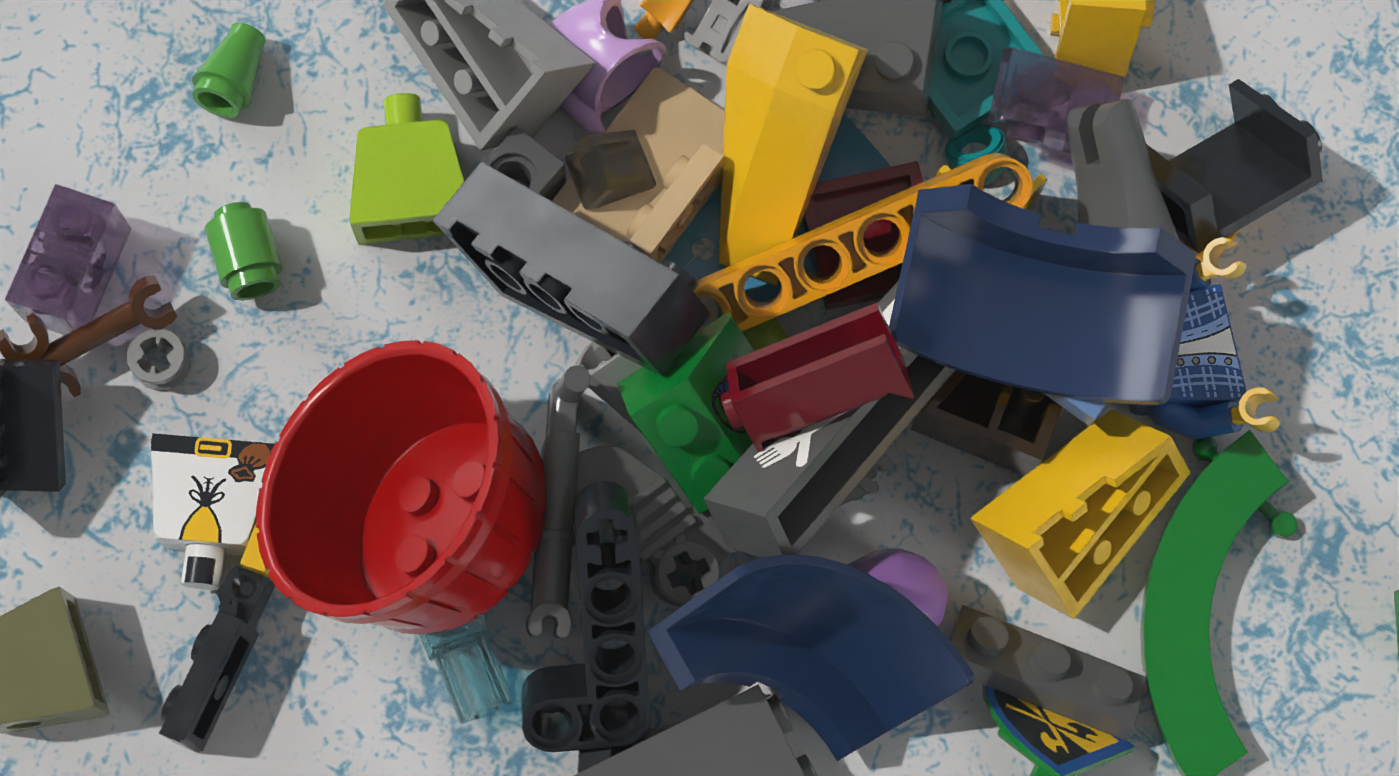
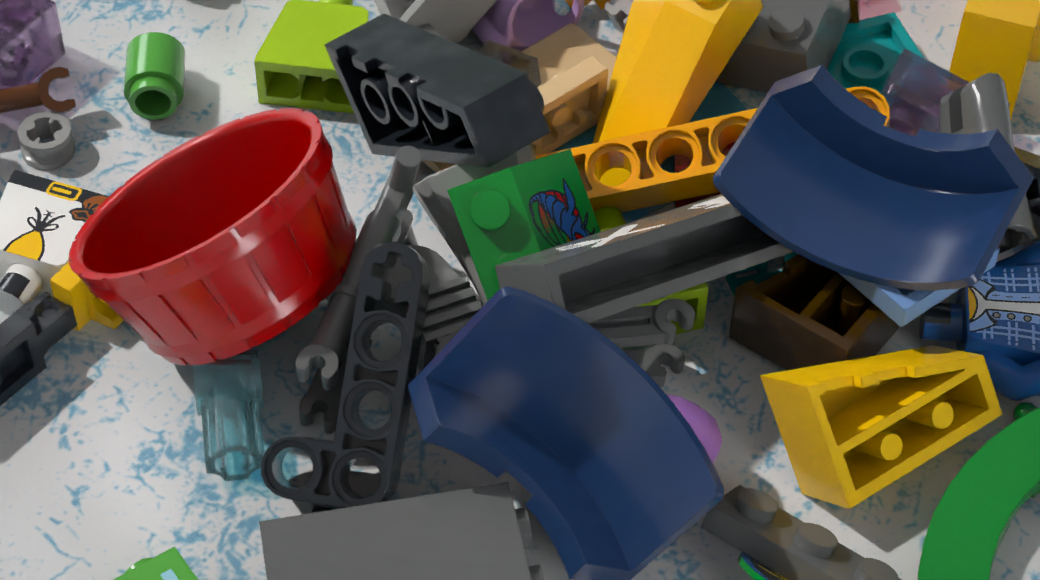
camera: 20 degrees right, 25 degrees down
(815, 376) = (631, 190): dark red window -> none

